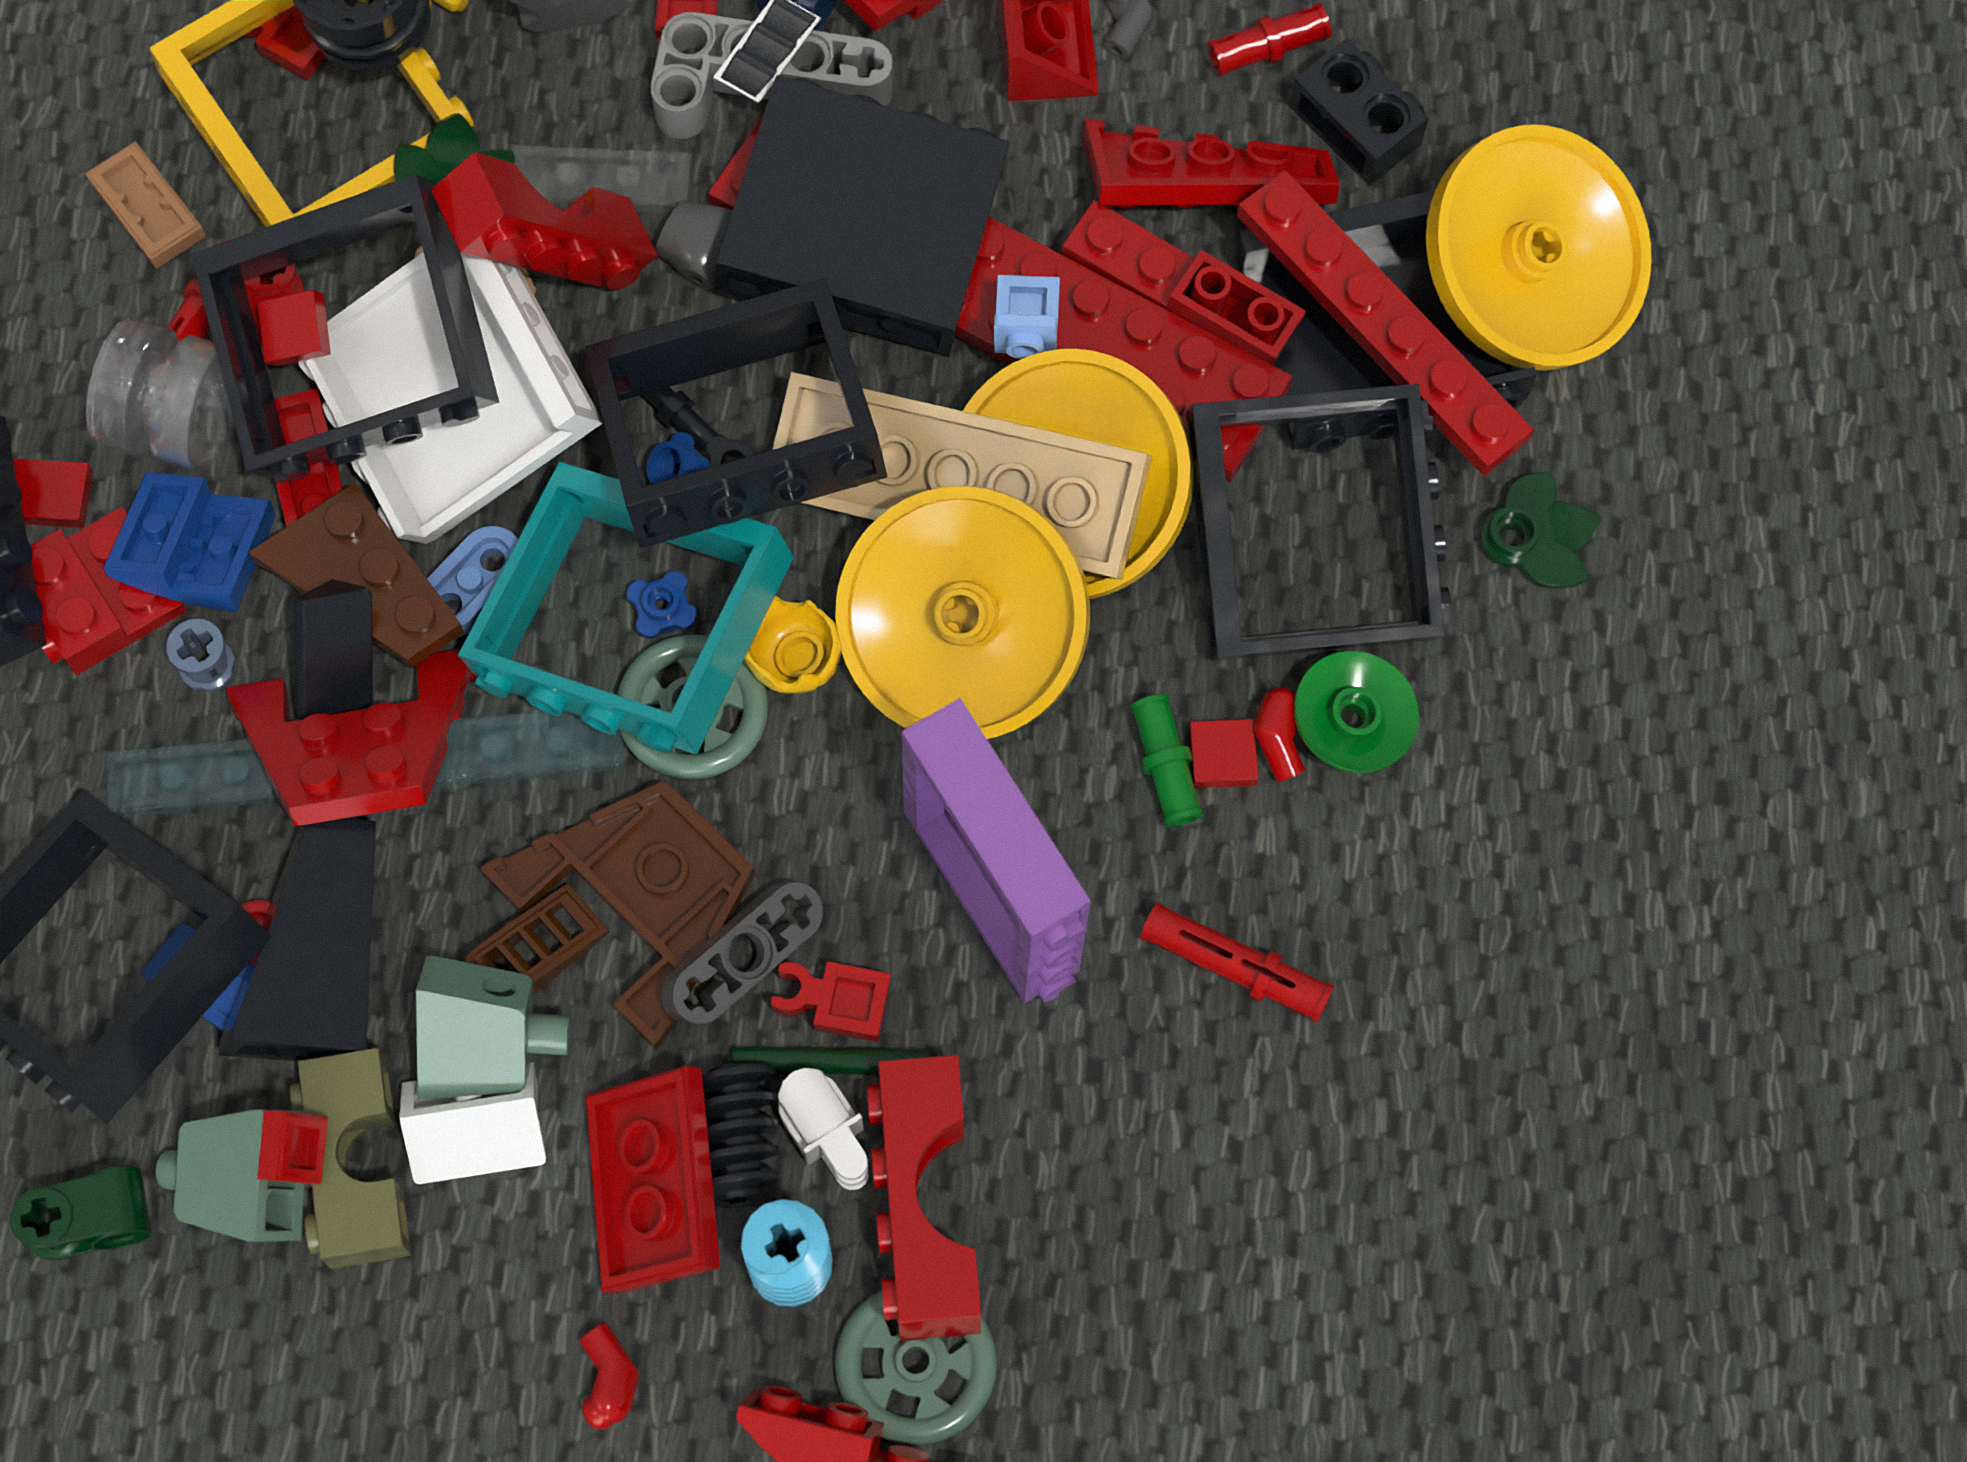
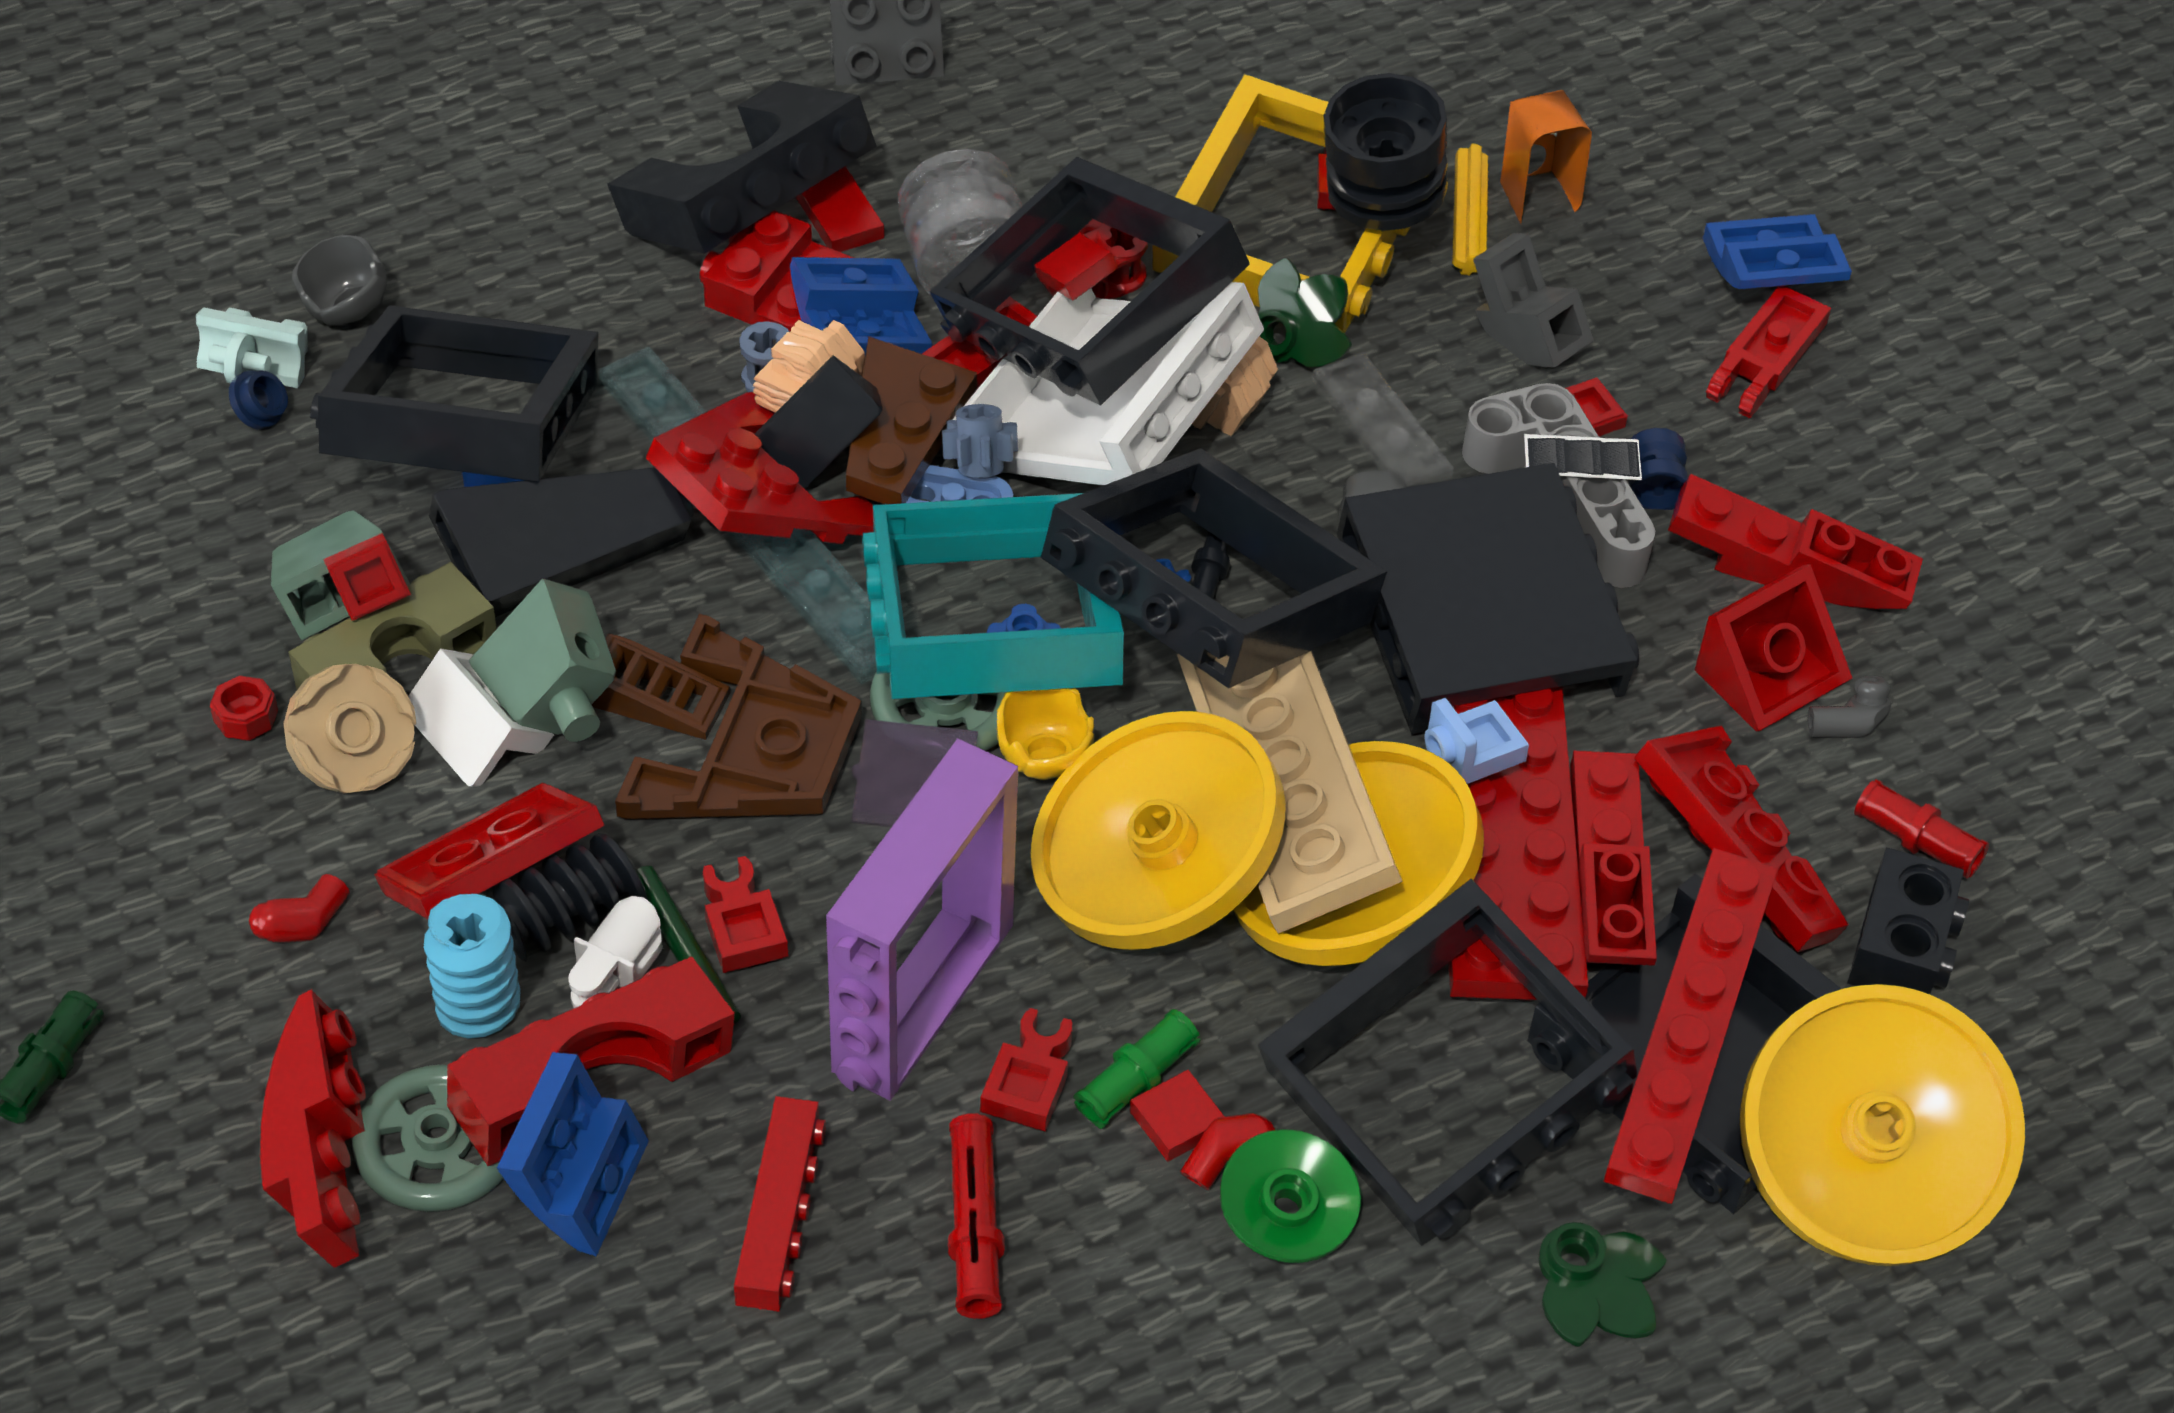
camera: 60 degrees right, 20 degrees down
(93, 1212) = (249, 500): dark green piece -> none
(145, 205) = (1136, 147): medium nougat plate -> none
(260, 626) = (799, 357): none -> light nougat hair
(337, 1327) = (244, 708): none -> red tile
(438, 1241) = (350, 728): none -> tan tile
(441, 523) = (980, 440): none -> sand blue gear
(508, 221) = (1251, 310): red arch -> none
(717, 995) = (686, 822): dark grey beam -> none
(767, 778) = (896, 765): none -> clear purple piece
(1025, 1257) = (573, 1154): none -> blue slope
(1130, 852) = (1028, 1077): none -> red plate
(1141, 1110) = (779, 1204): none -> red piece

